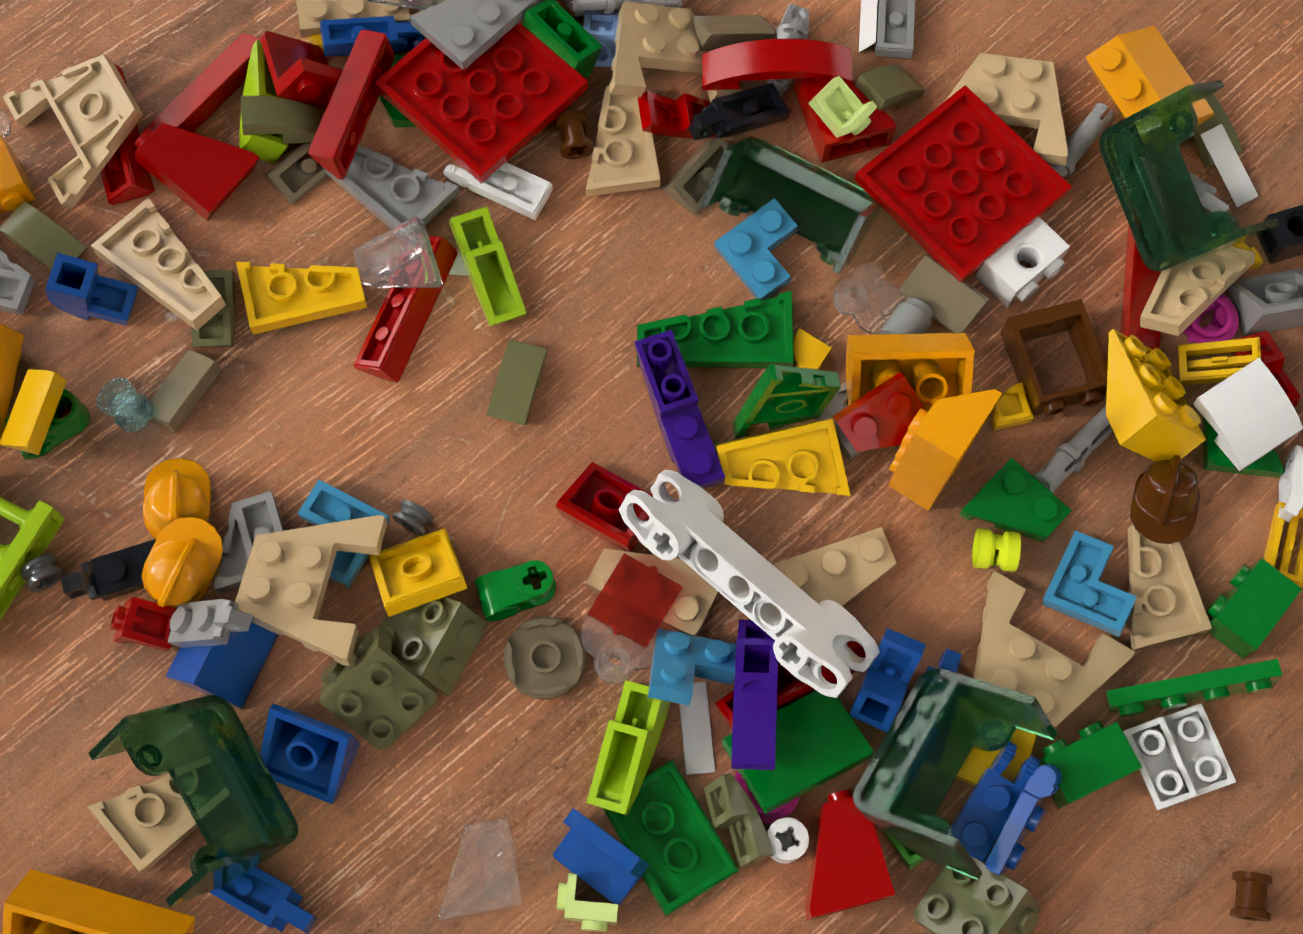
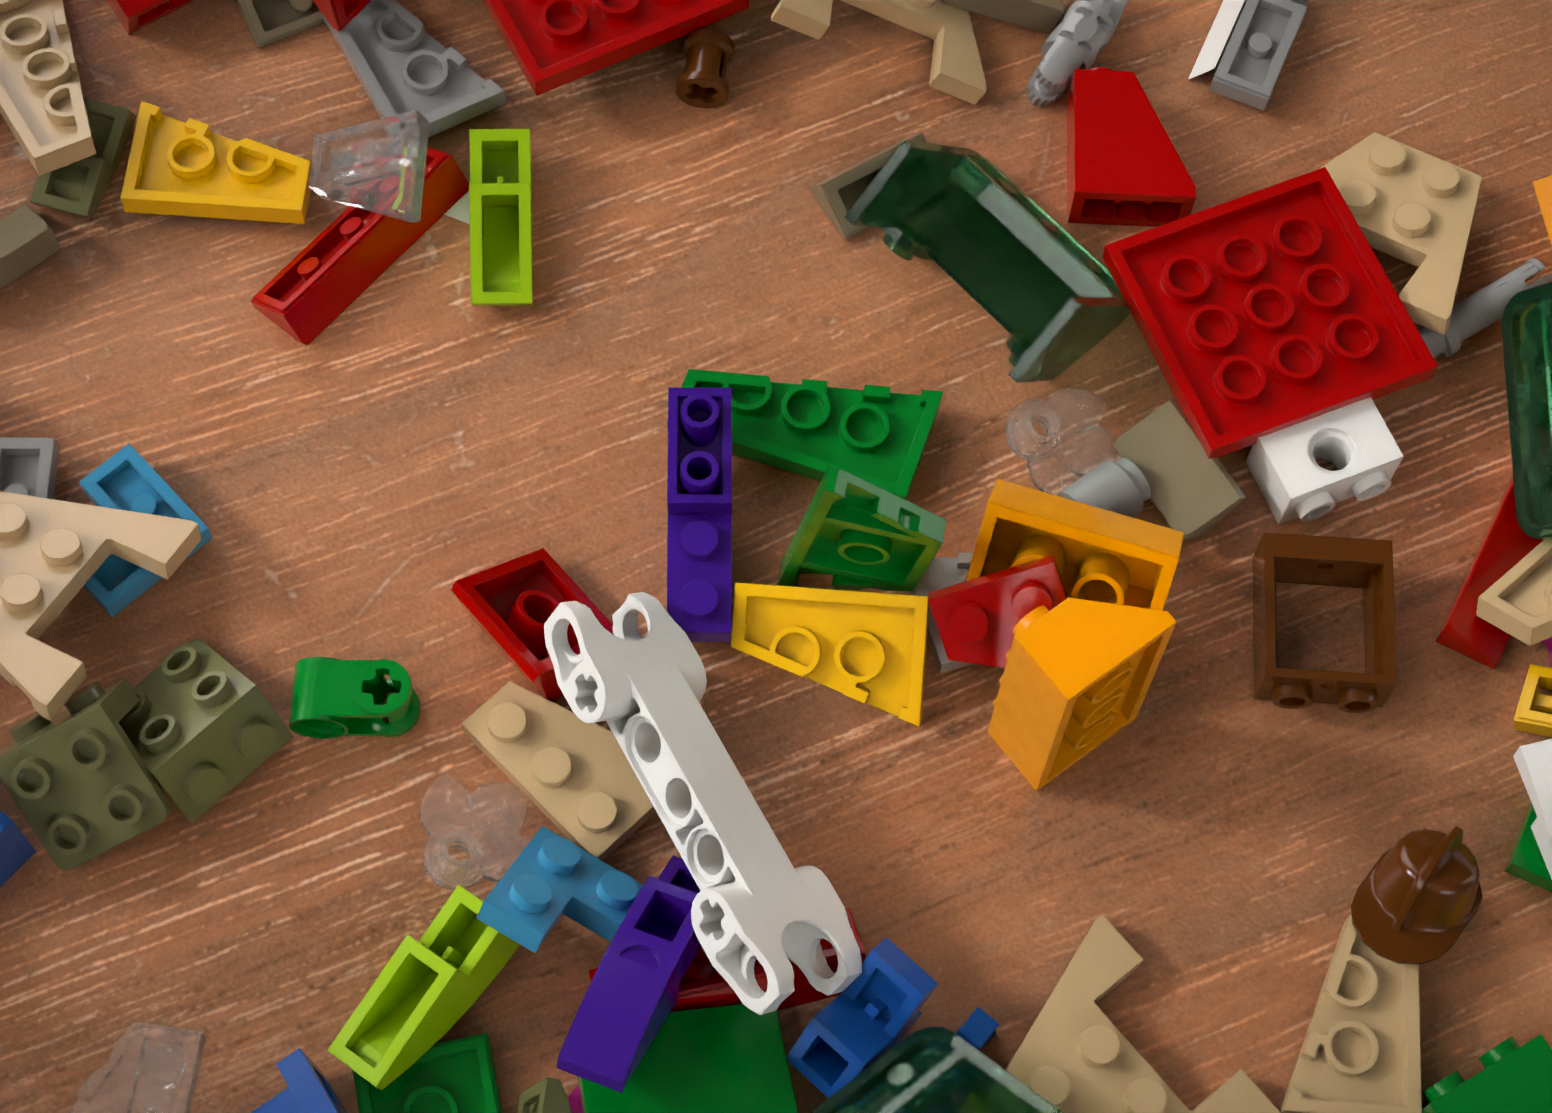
camera: 20 degrees right, 5 degrees down
(412, 517) = (244, 542): dark grey bush -> none
(417, 572) = (215, 623): yellow tile -> none
(508, 187) = (578, 115): white hinge -> none
(517, 382) = (477, 396): olive slope -> none
(544, 658) = (357, 816): dark tan tile -> none
(623, 152) = (773, 110): tan wing -> none
(635, 601) = (522, 772): clear red piece -> none
(669, 116) = (877, 93): red slope -> none
(697, 732) = (546, 1002): white sticker -> none
(740, 113) = (965, 110): black hinge -> none
(750, 245) = (907, 309): dark azure plate -> none
(775, 60) = (1049, 46): red slope -> none
(809, 351) = (941, 490): yellow tile -> none
(841, 108) = (1115, 143): yellowish green bracket -> none
(842, 568) = (860, 832): tan wing -> none
(889, 86) = (1210, 136): olive slope -> none
(996, 550) = (1130, 891): neon yellow wheel -> none
(1012, 409) = (1226, 678): yellow tile -> none
(1017, 503) = (1180, 824): green wing -> none
(1071, 456) = (1293, 778): light grey pin -> none
(1078, 588) = (1227, 991): dark azure plate -> none
(1148, 402) = (1441, 730): yellow slope -> none

